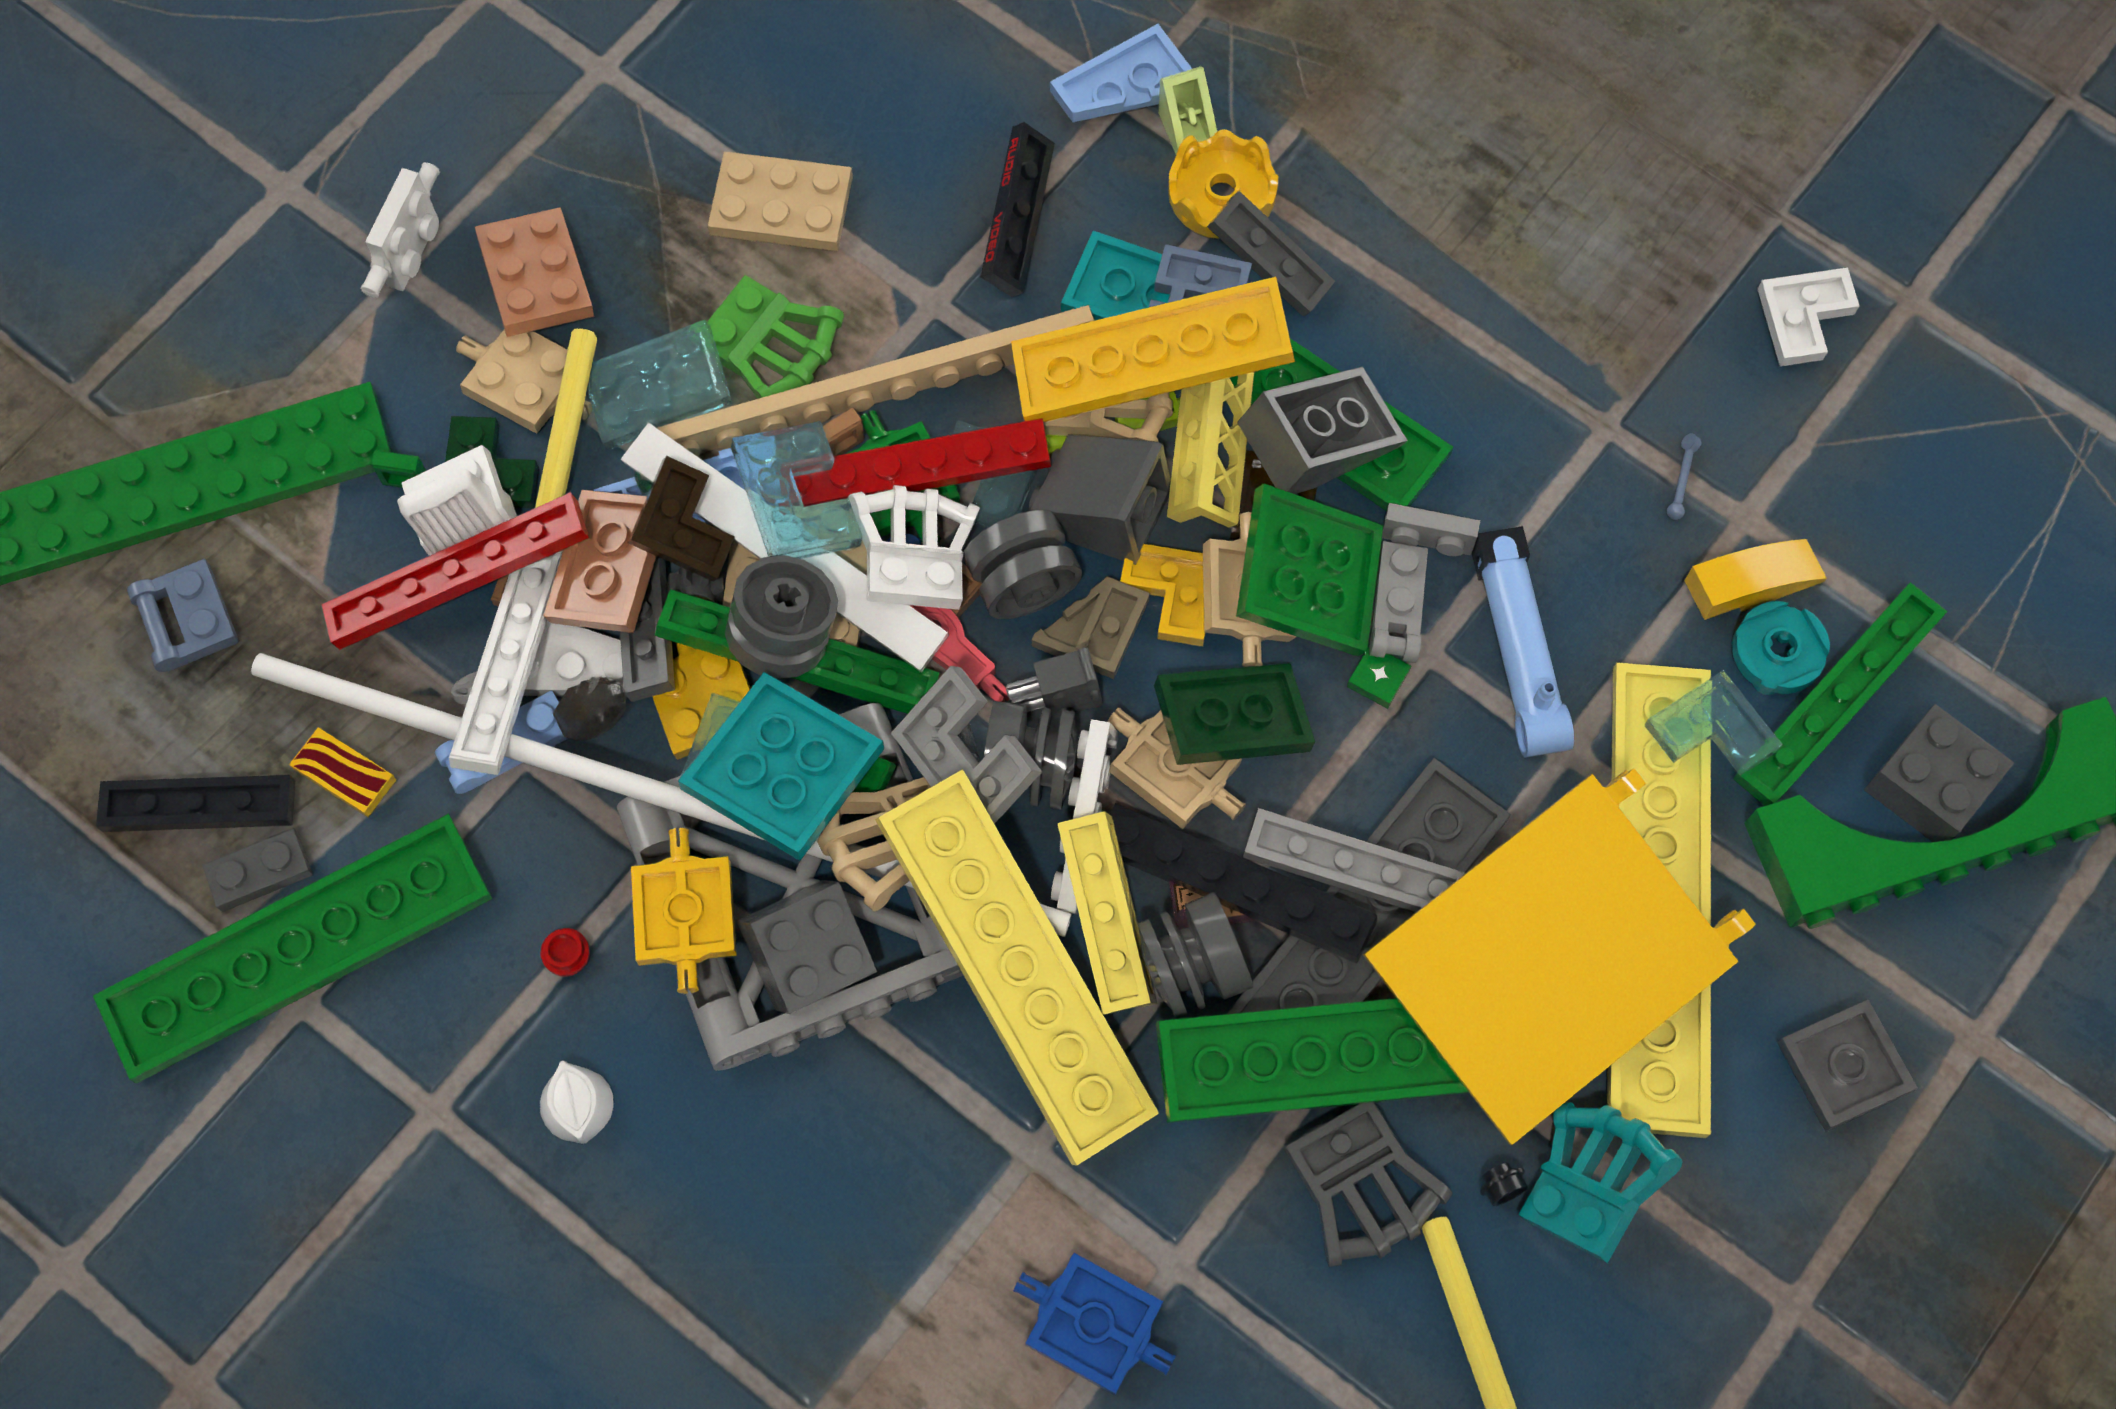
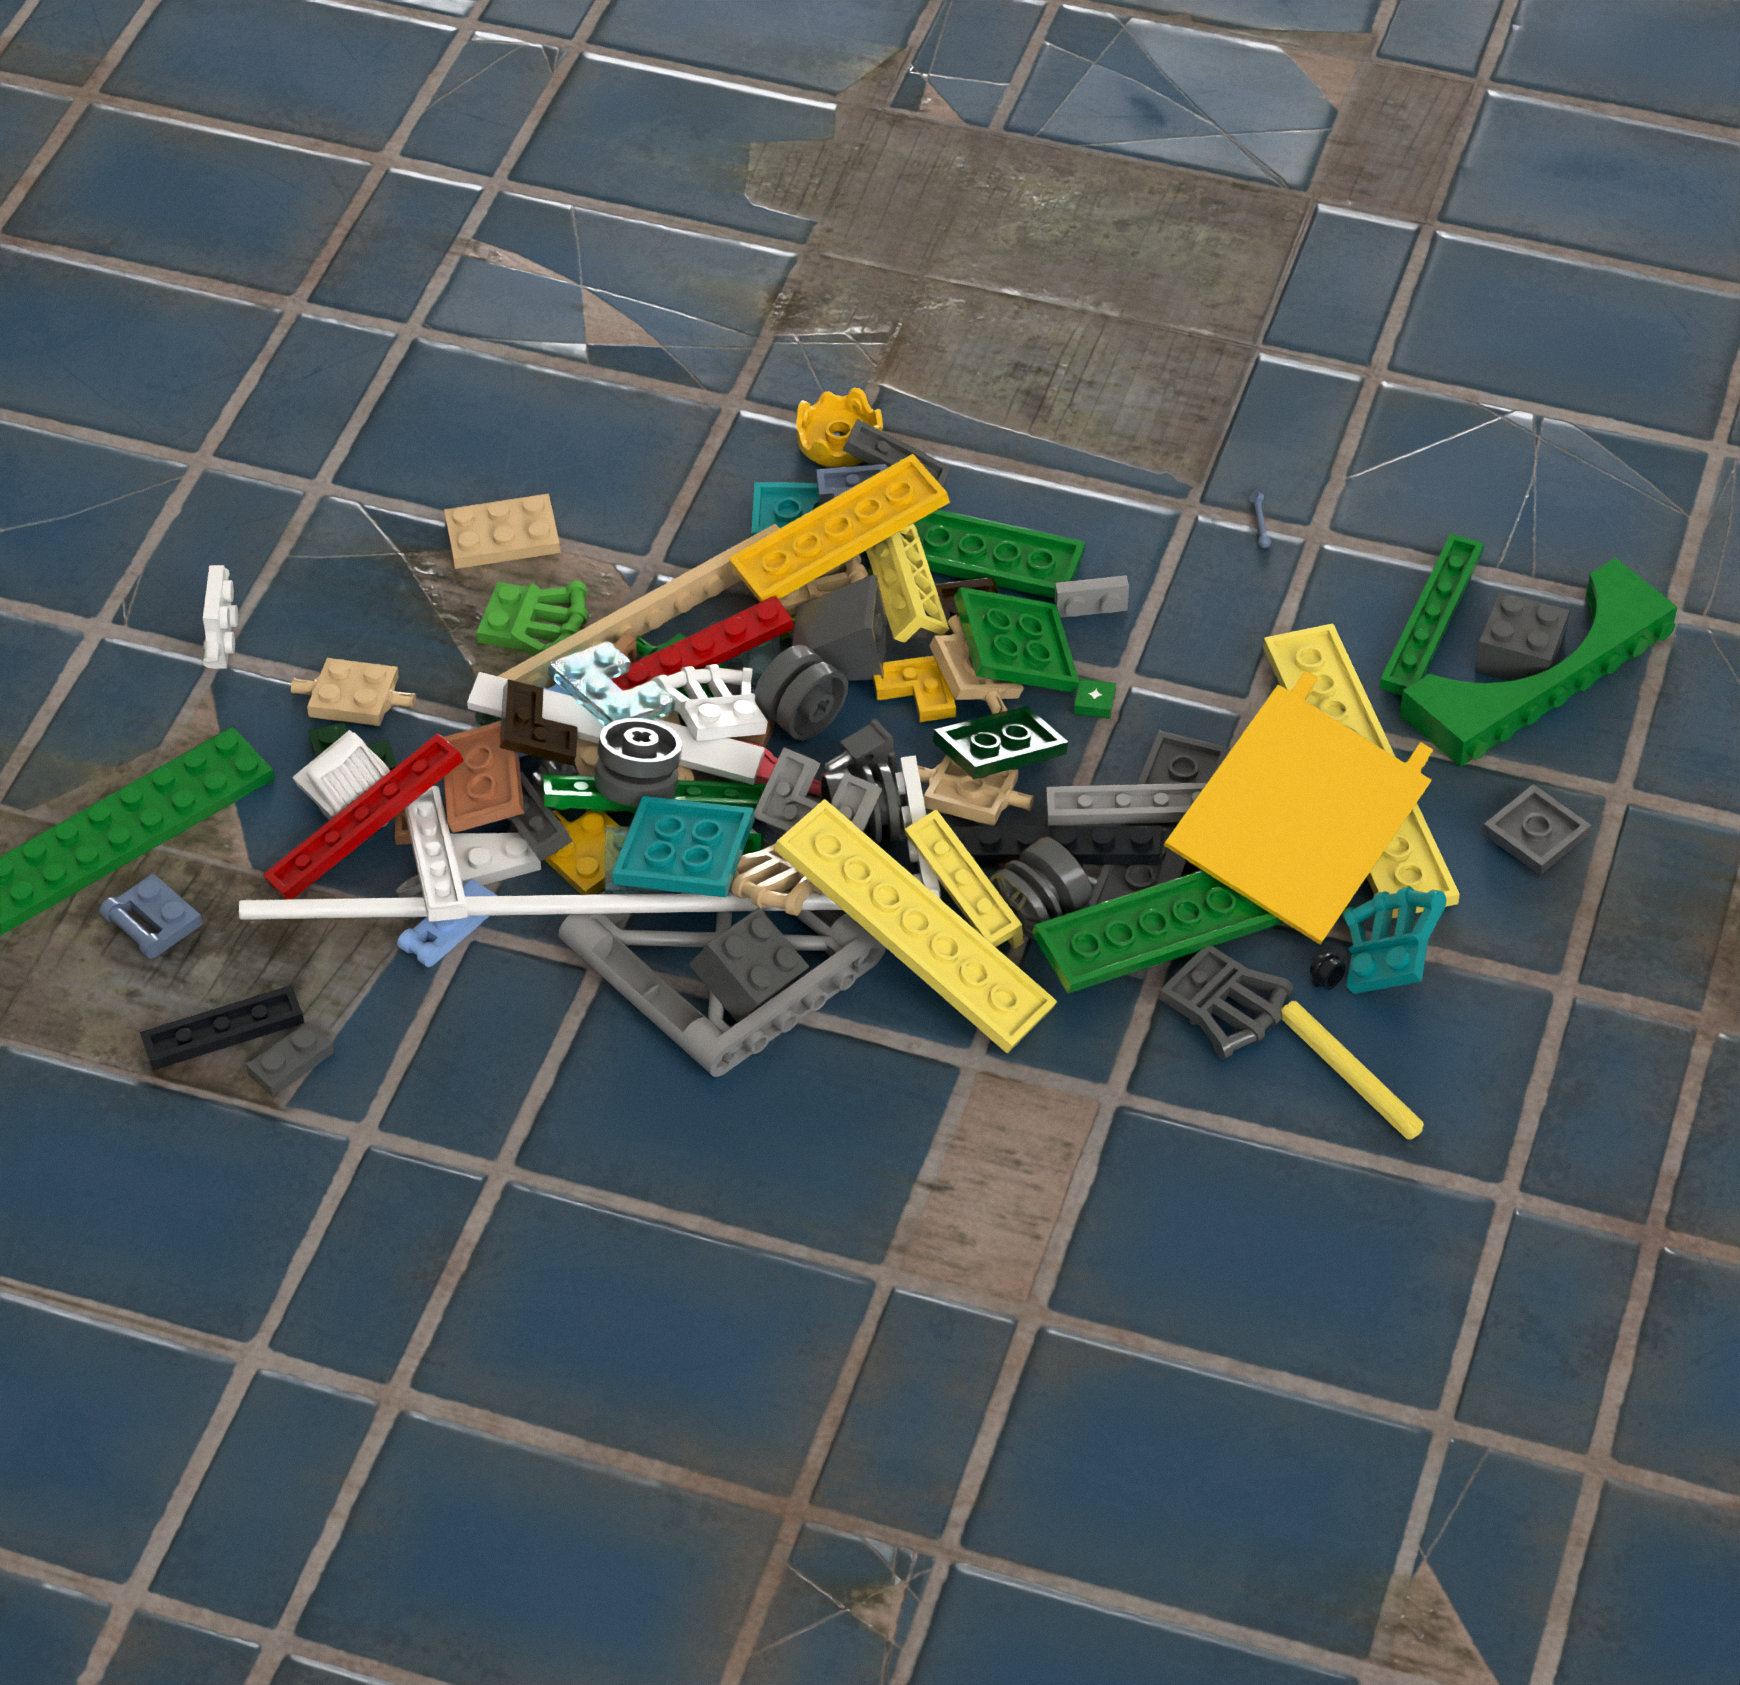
camera: 20 degrees left, 20 degrees down
(291, 948) = (343, 1096): green plate -> none
(343, 772) = (329, 978): tile -> none
(395, 467) = (280, 772): green tile -> none
(534, 272) = (331, 621): nougat plate -> none
(565, 952) = (559, 1037): red plate -> none
(567, 416) = (402, 697): light yellow axle -> none
(576, 1103) = (611, 1129): white hat -> none
(590, 708) = (512, 871): clear smoke rock -> none
(657, 384) = (449, 669): clear light blue plate -> none
(683, 910) = (646, 968): yellow plate -> none
(1017, 210) = (690, 486): black plate -> none
(1094, 1323) = (1069, 1140): blue plate -> none
(1099, 622) = (872, 704): dark tan wing -> none
(1120, 77) = (734, 384): light blue wing -> none
(1186, 107) = (788, 386): yellowish green slope -> none
(1320, 429) = (982, 551): dark grey slope -> none
(1398, 601) = (1089, 646): light grey plate -> none
(1540, 717) = (1225, 689): light blue piece -> none
(1716, 713) = (1347, 642): clear light blue plate -> none
(1753, 577) = (1336, 562): yellow slope -> none
(1770, 671) = (1374, 615): teal plate -> none
(1797, 304) = (1297, 395): white plate -> none

